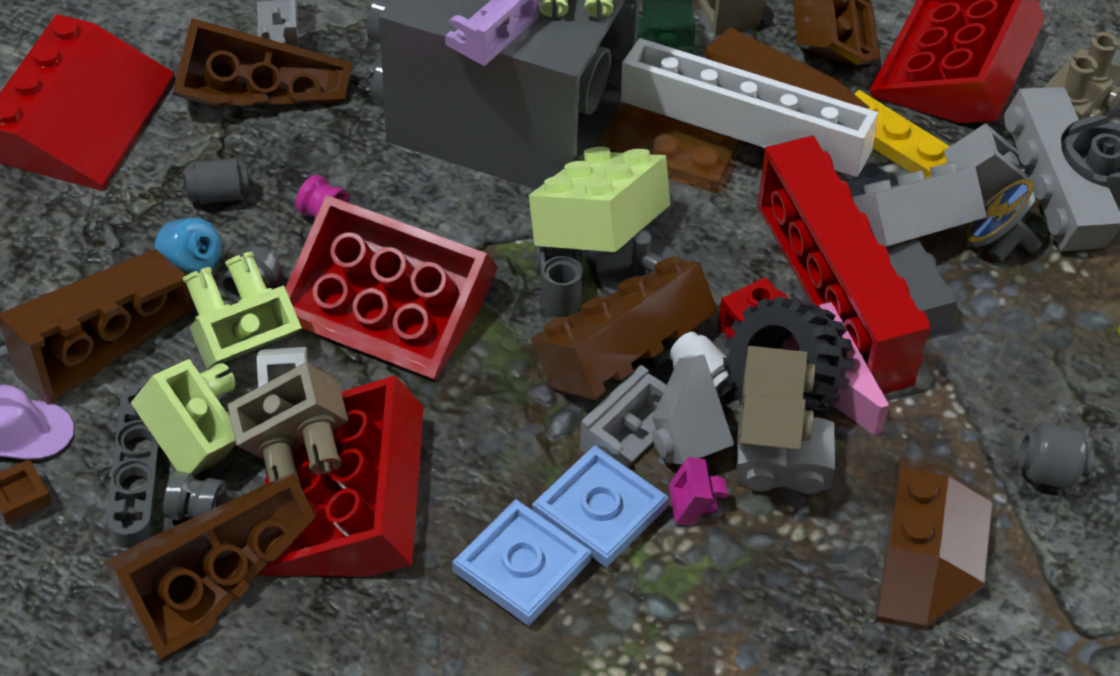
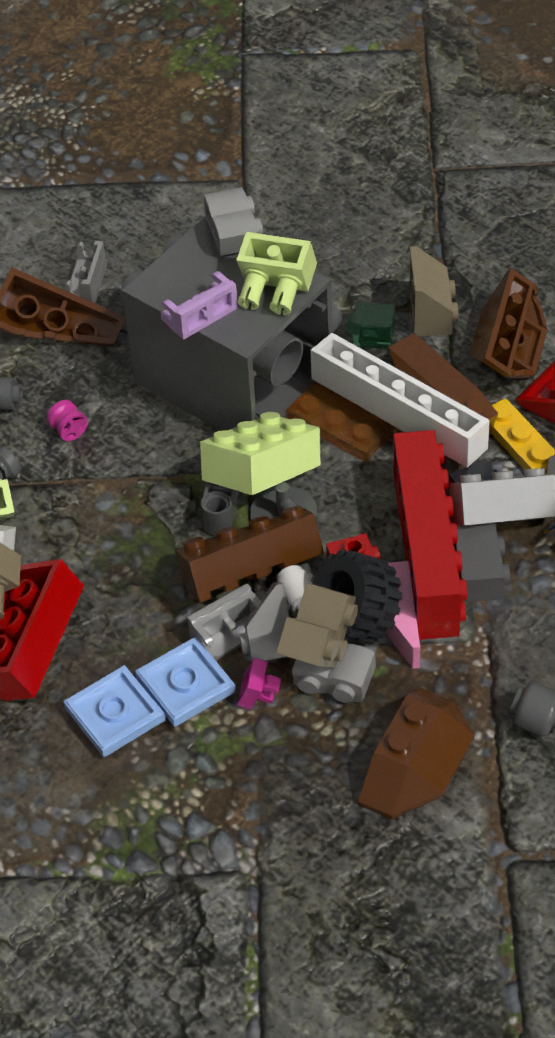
camera: 20 degrees right, 0 degrees up
(387, 287) = (89, 494): red slope -> none

